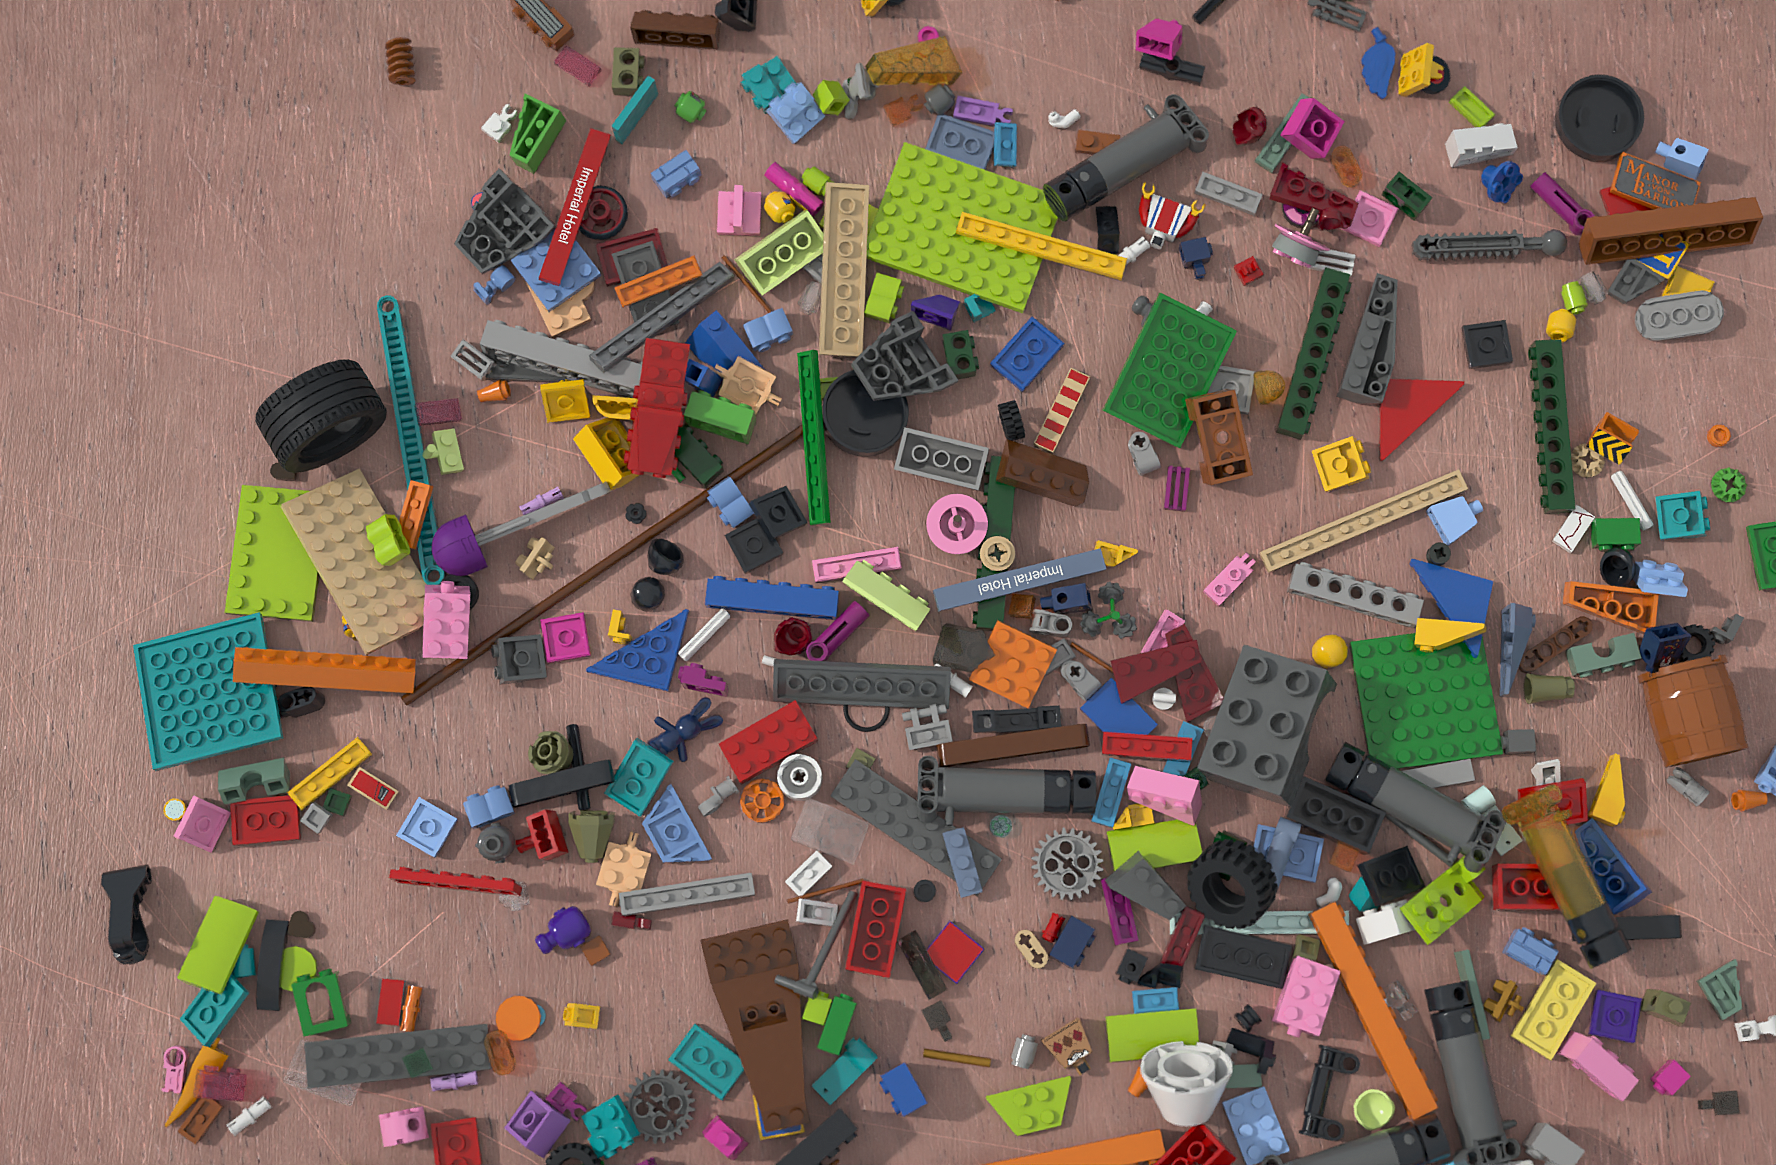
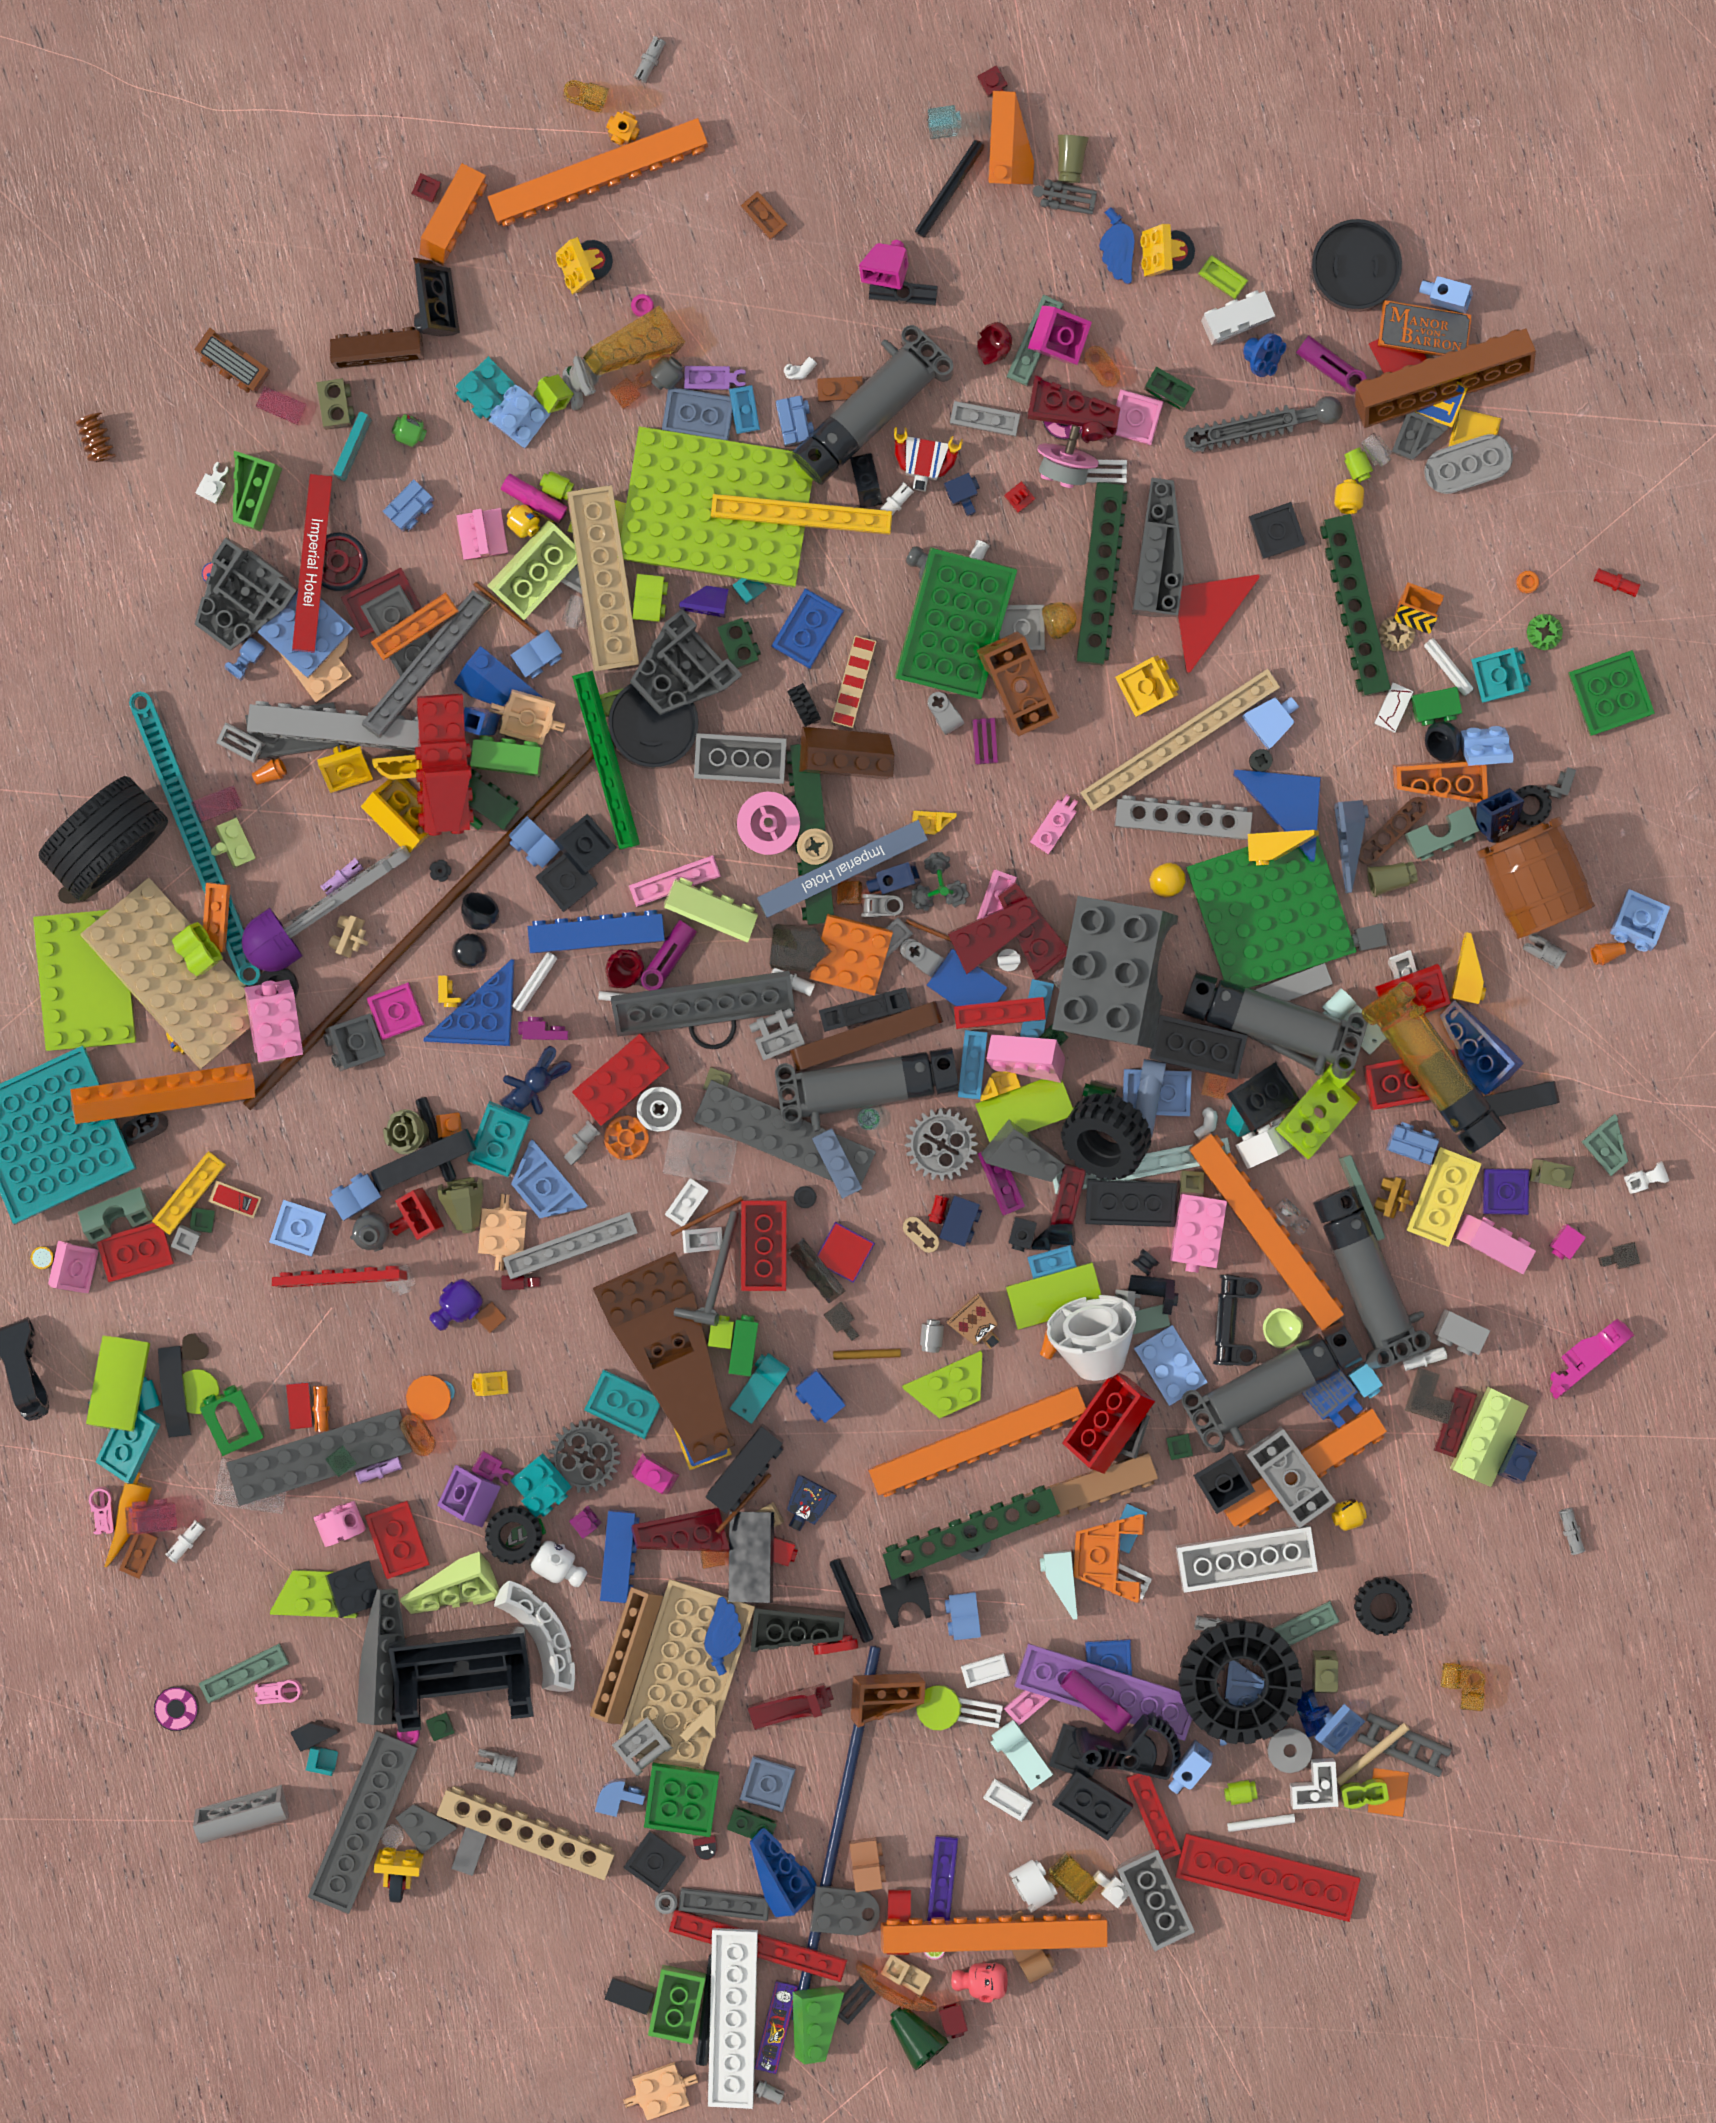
camera: 10 degrees left, 10 degrees up
(593, 753) = (448, 1124): none -> orange plate
(1049, 160) = (793, 420): none -> medium blue brick

